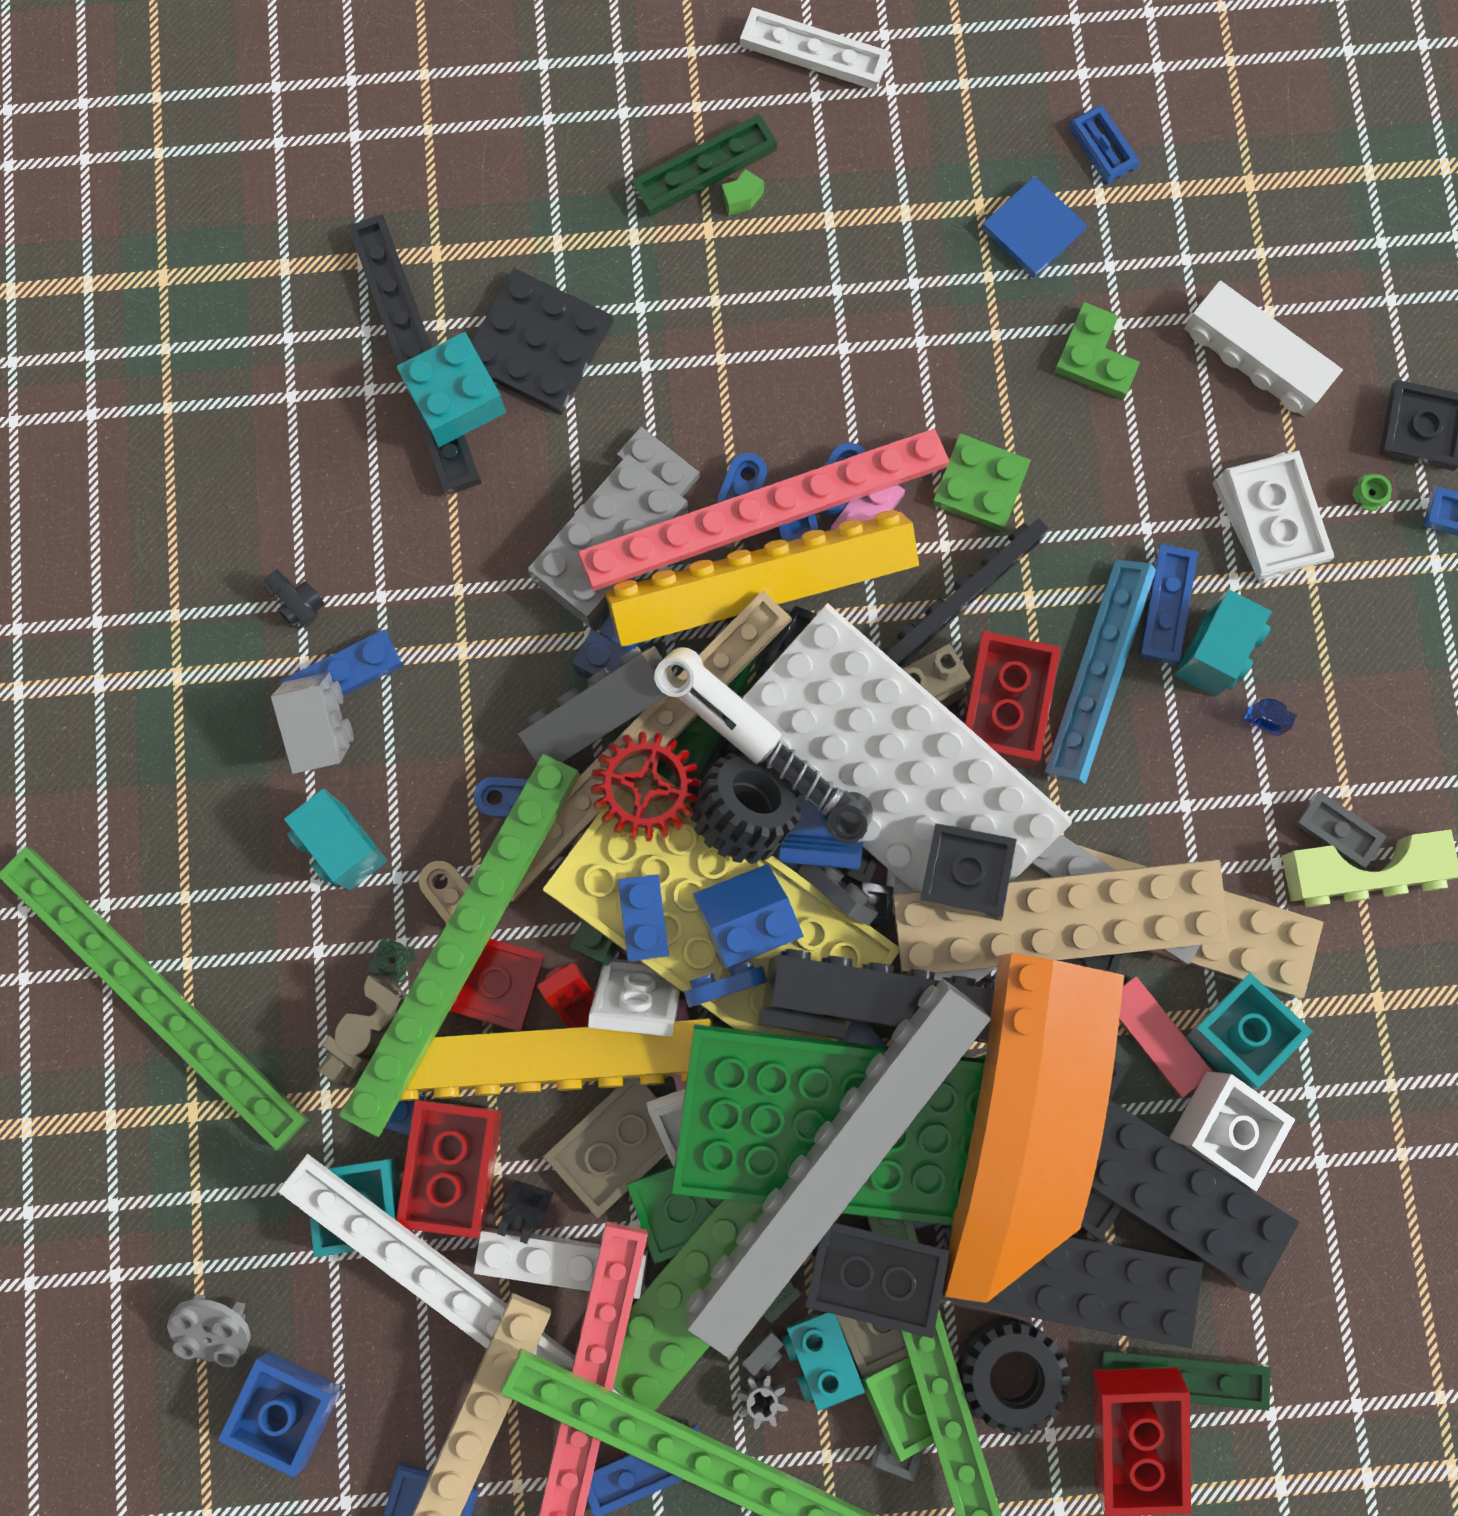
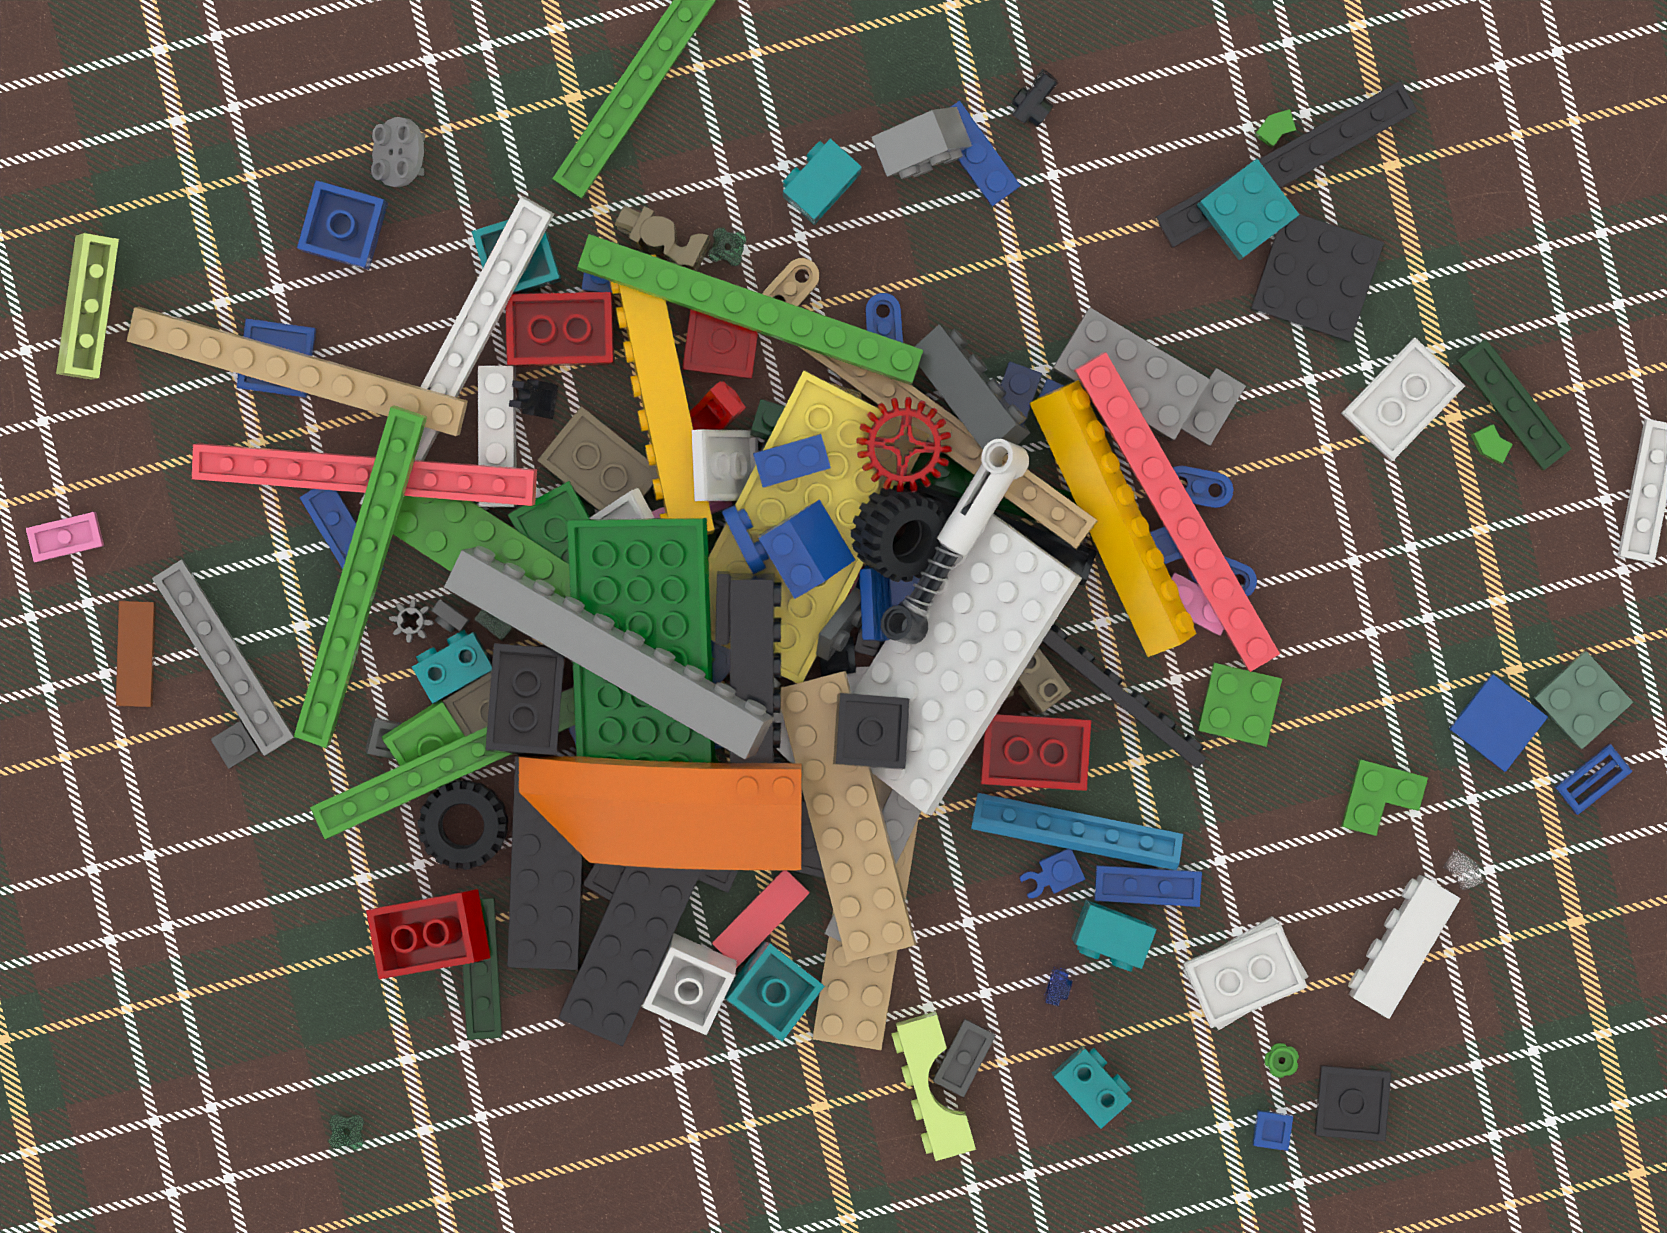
camera: 80 degrees right, 10 degrees up
(372, 358) = (1275, 127): none -> bright green piece
(681, 274) = (1403, 399): none -> white tile
(1020, 143) = (1582, 700): none -> sand green plate
(1141, 698) = (1058, 871): none -> blue plate
(1186, 279) = (1464, 869): none -> clear piece
(1386, 694) = (1092, 1085): none -> teal brick

